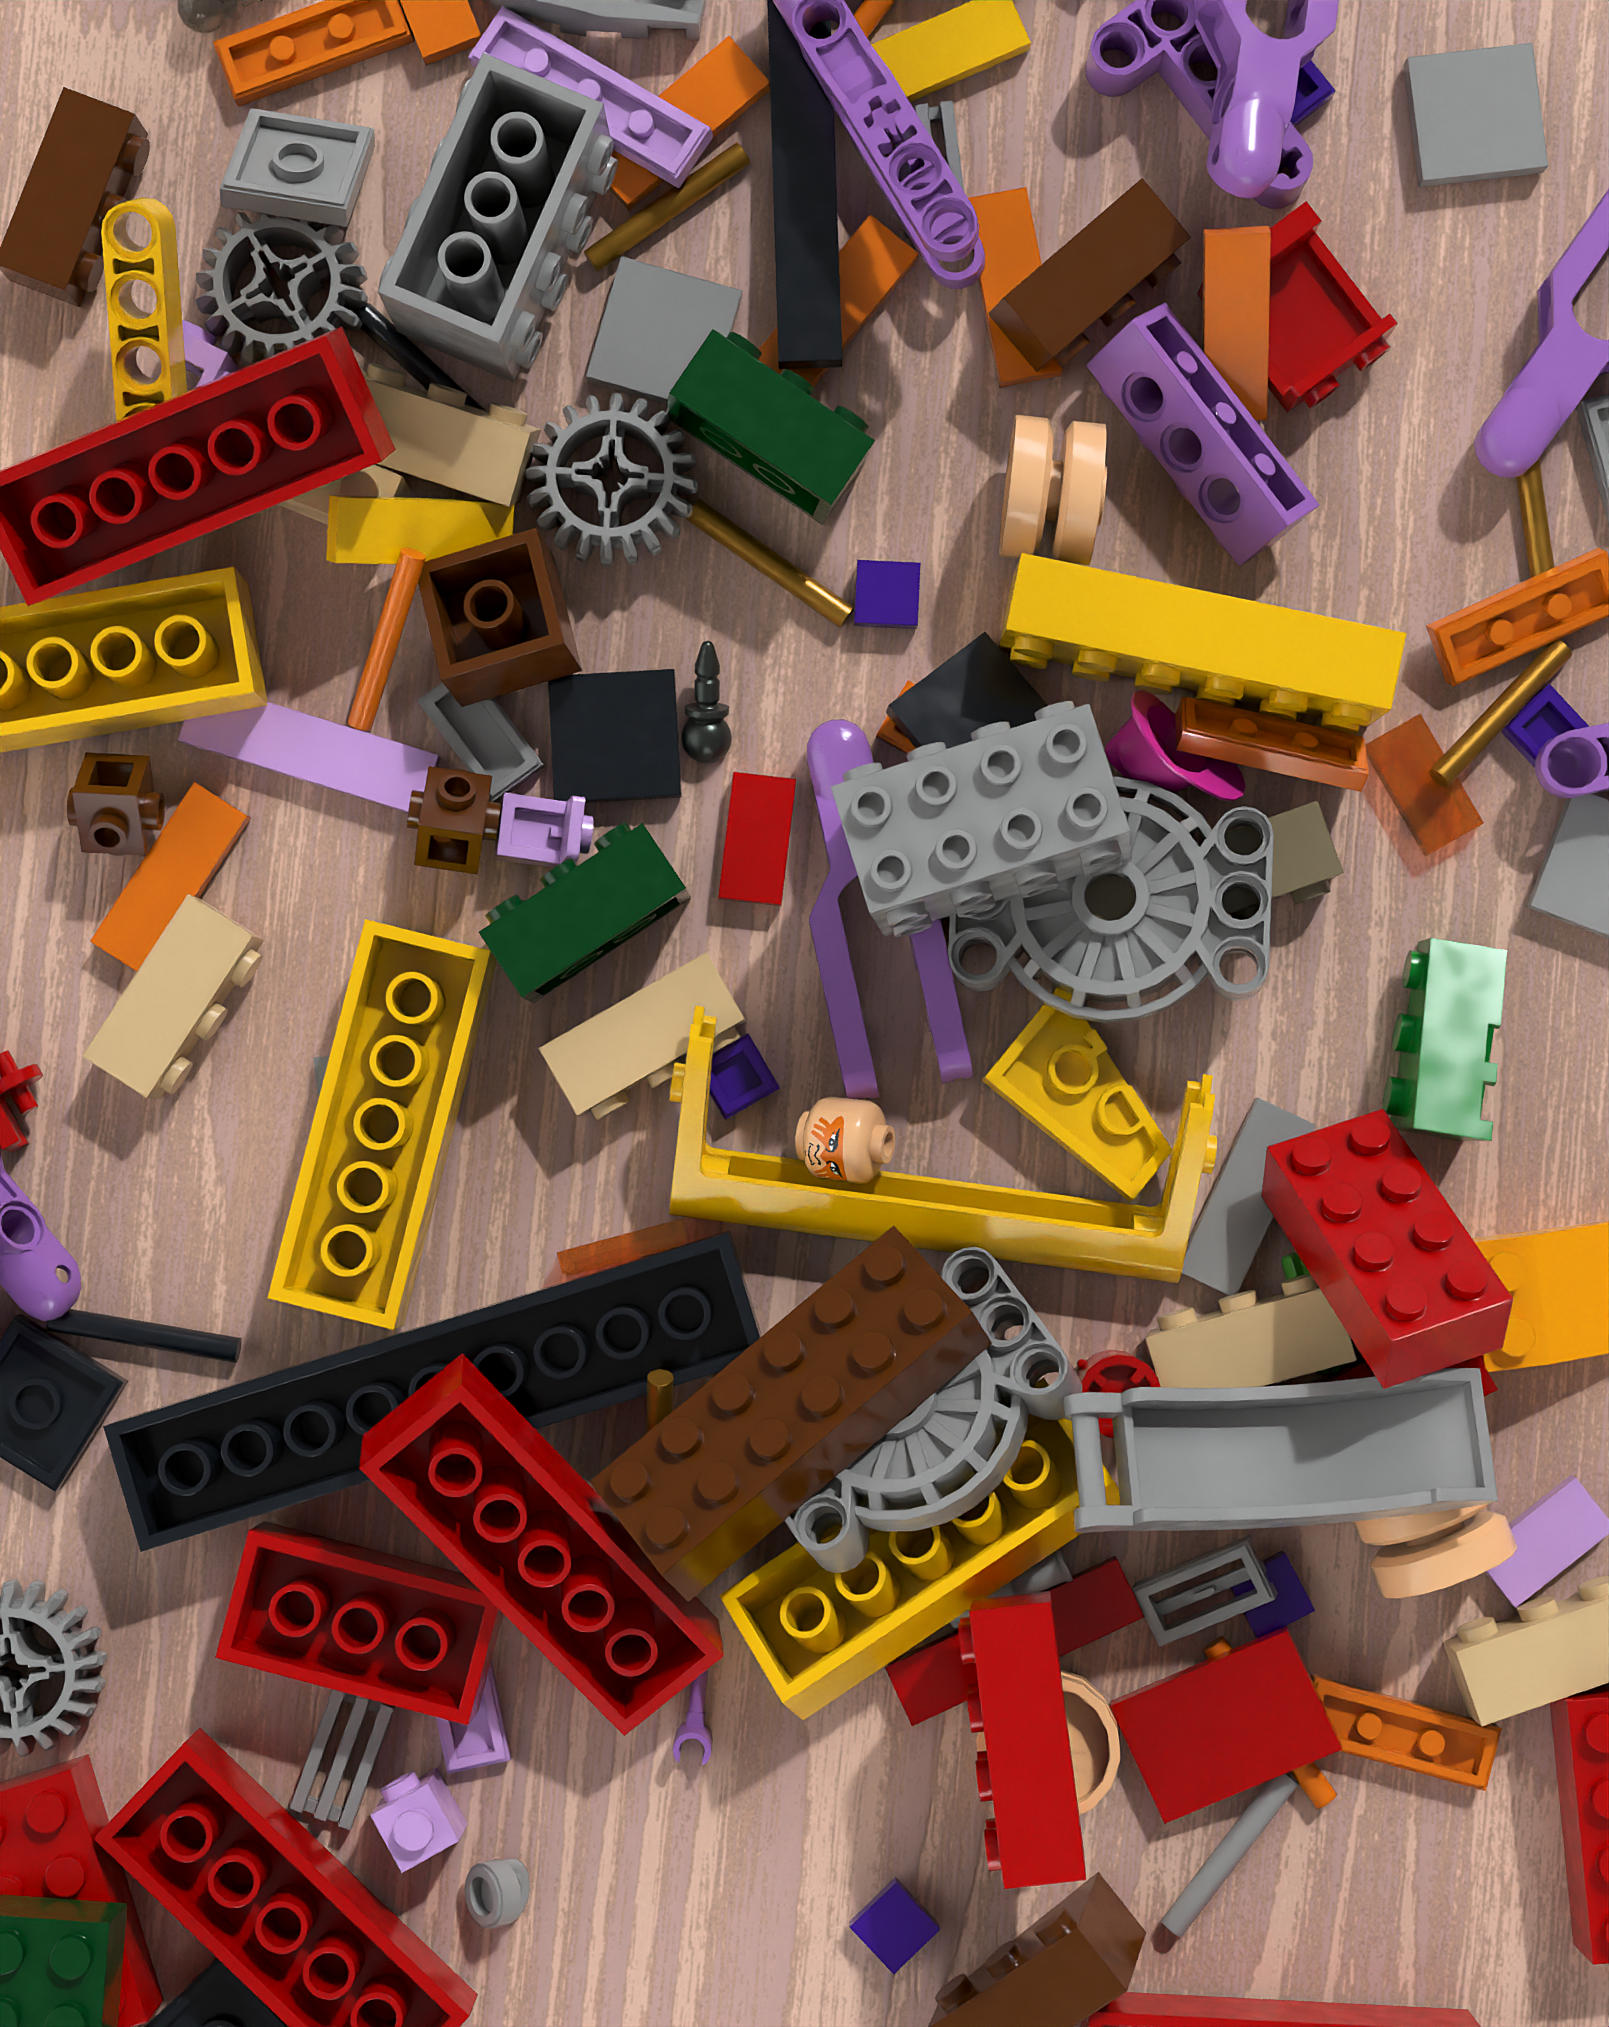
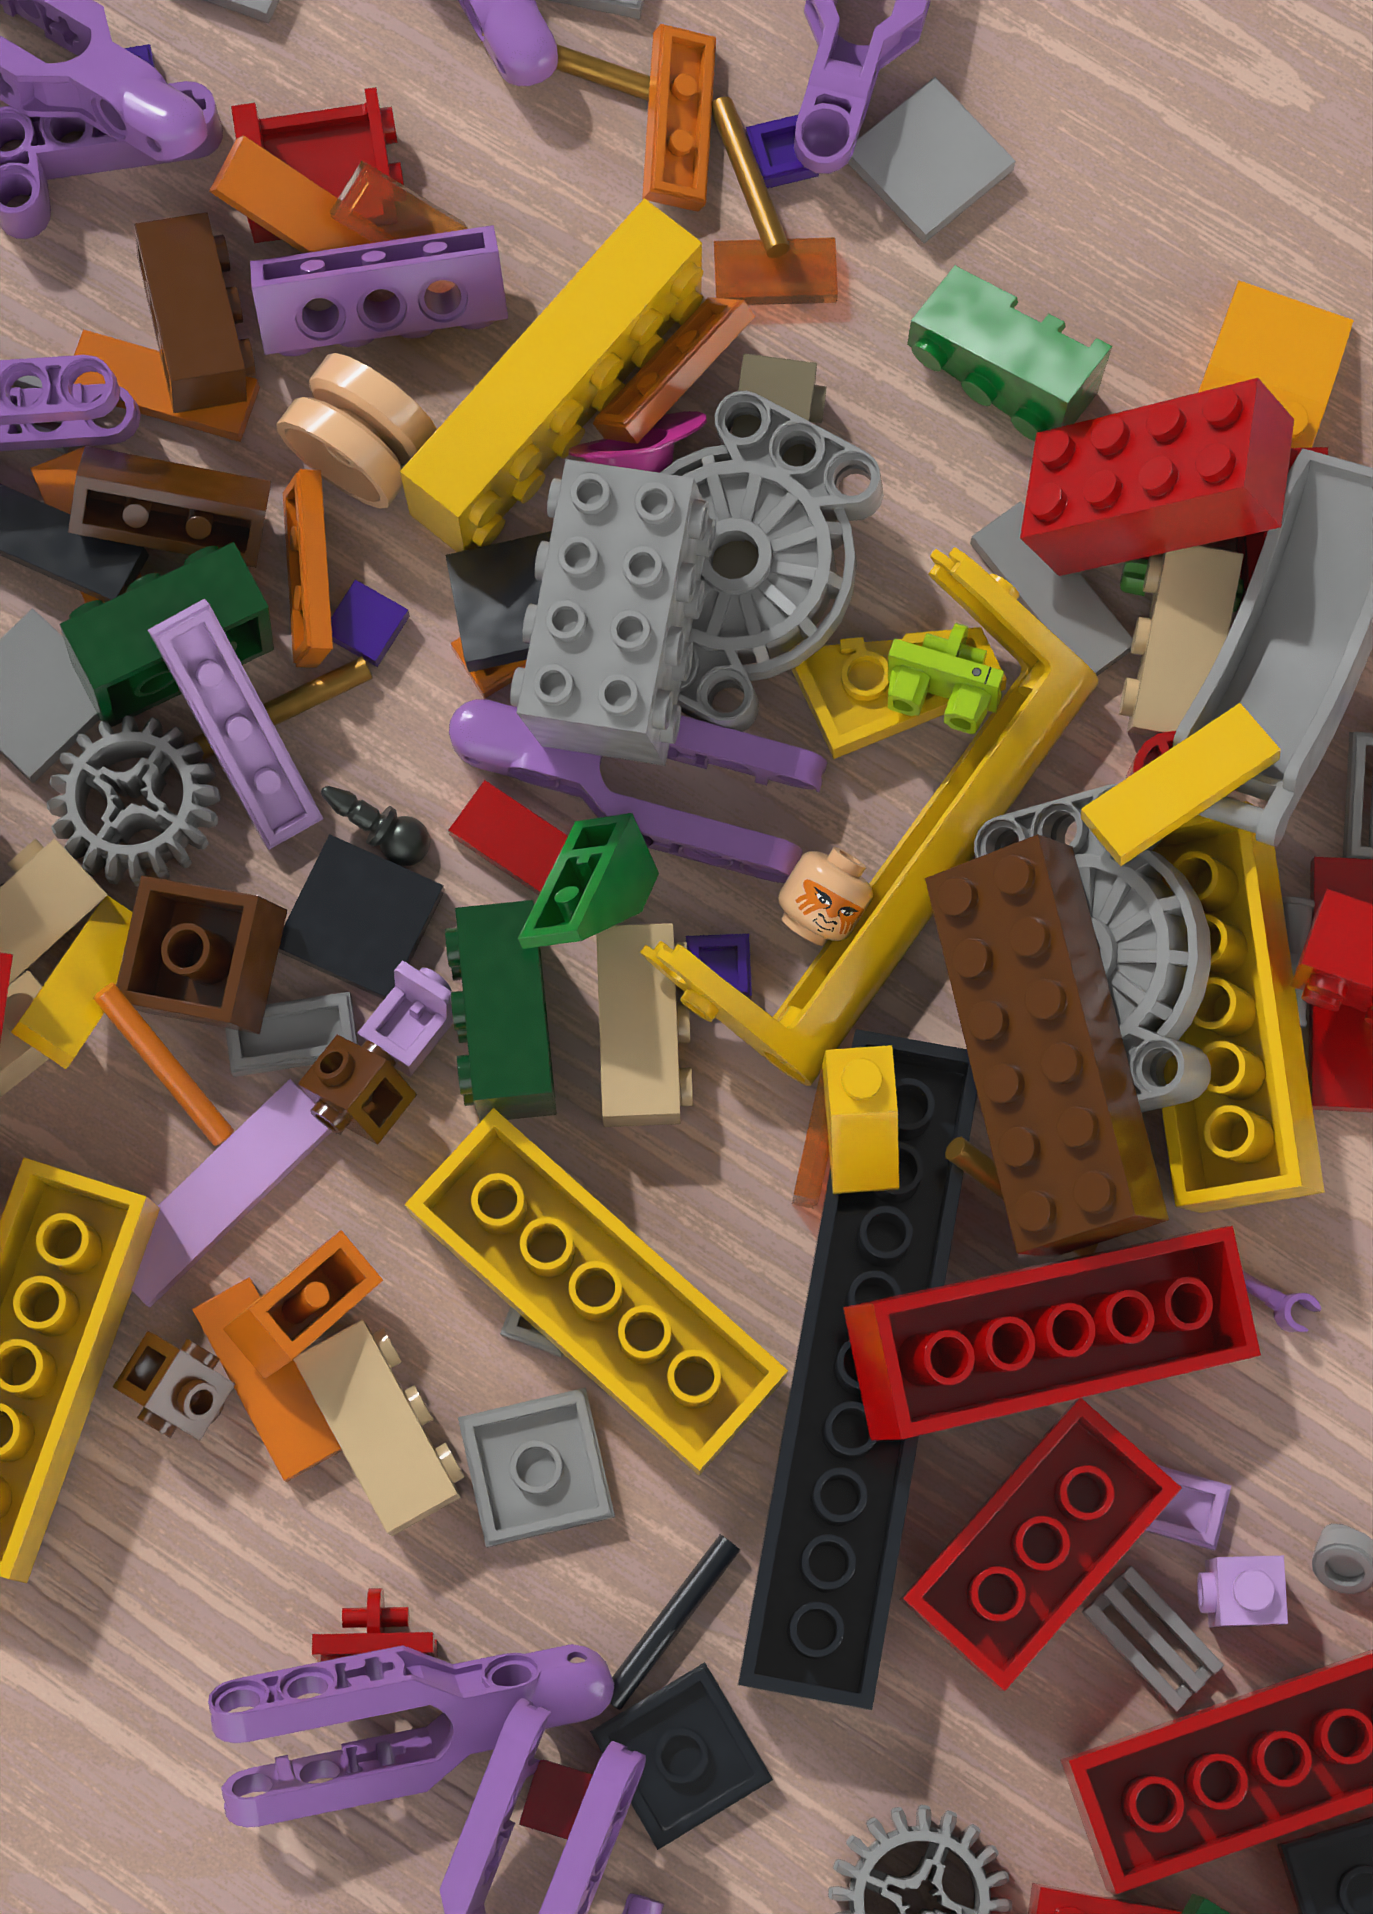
camera: 65 degrees left, 10 degrees down
(215, 1150) = (536, 1467): none -> light grey tile
(237, 878) = (303, 1305): none -> orange brick
(641, 1282) = (861, 1119): none -> yellow slope
(717, 532) = (235, 723): none -> lavender tile
(732, 932) = (594, 884): none -> green slope
(891, 360) = (167, 504): none -> reddish brown brick
(906, 514) = (307, 569): none -> orange tile
(1088, 1417) = (1180, 784): none -> yellow tile
(1091, 1116) = (946, 670): none -> lime hips
(1281, 402) = (387, 209): none -> clear orange tile

